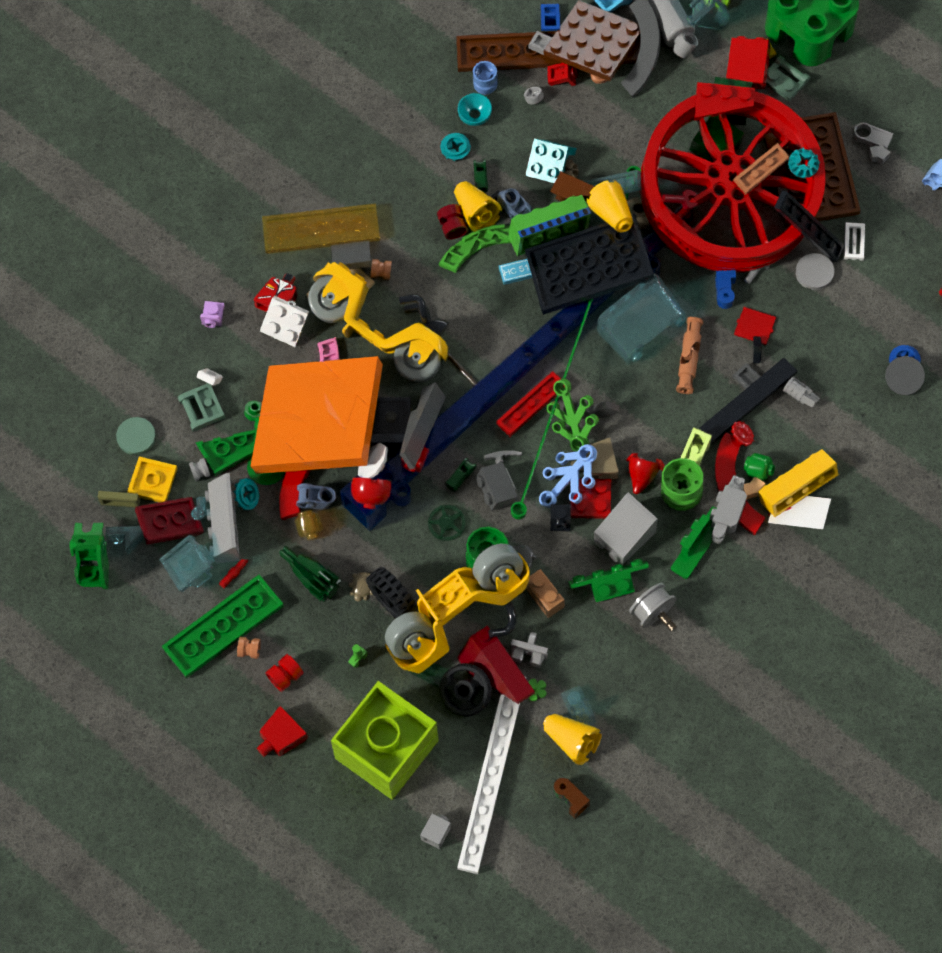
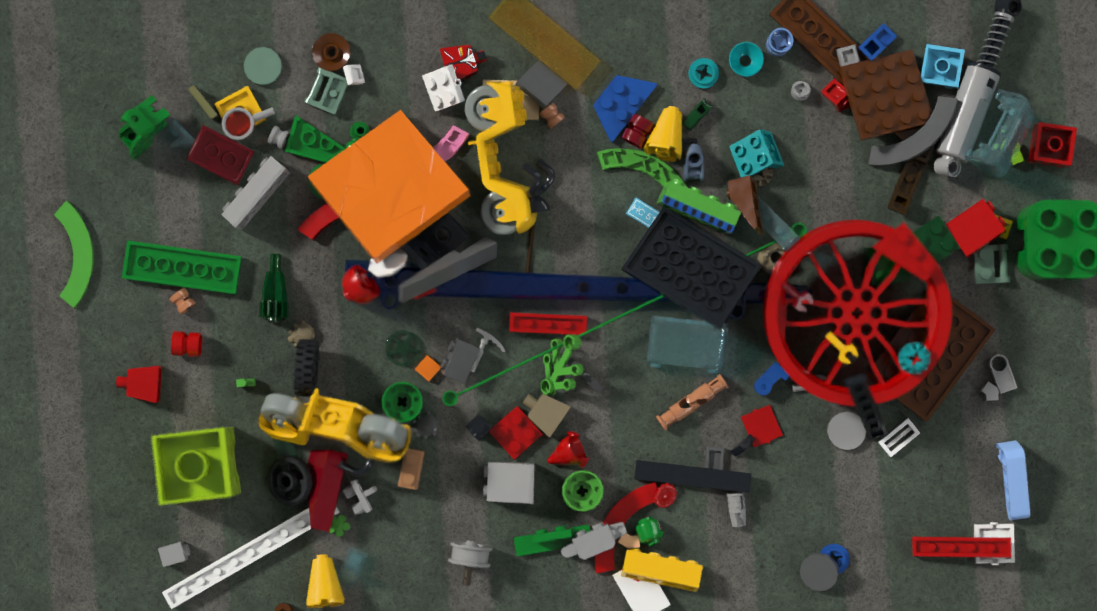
camera: 45 degrees right, 20 degrees up
(135, 690) = (82, 254): none -> bright green tile
(161, 484) = (240, 123): none -> piece
(173, 370) = (331, 42): none -> reddish brown dish
(188, 563) = (199, 202): clear light blue panel -> none
(200, 511) = (246, 170): clear light blue arm -> none
(212, 314) = (404, 27): lavender bracket -> none
(233, 573) = (228, 235): red piece -> none
(251, 499) = (293, 194): teal gear -> none
(309, 524) = (309, 255): clear yellow head -> none
(311, 496) = (330, 237): sand blue piece -> none
(419, 218) = (620, 102): none -> blue wing
(459, 476) = (443, 325): dark green bar -> none
(479, 517) = (428, 368): none -> orange tile
(570, 473) = (516, 405): light blue plant -> none
(611, 205) = (748, 246): yellow cone -> none
(611, 582) = (464, 504): green bracket -> none
(669, 79) = (907, 182): none -> dark brown slope
(697, 445) = (618, 475): yellowish green slope -> none
(749, 207) = (841, 347): none -> yellow bar
(761, 168) = (881, 330): nougat tile -> none

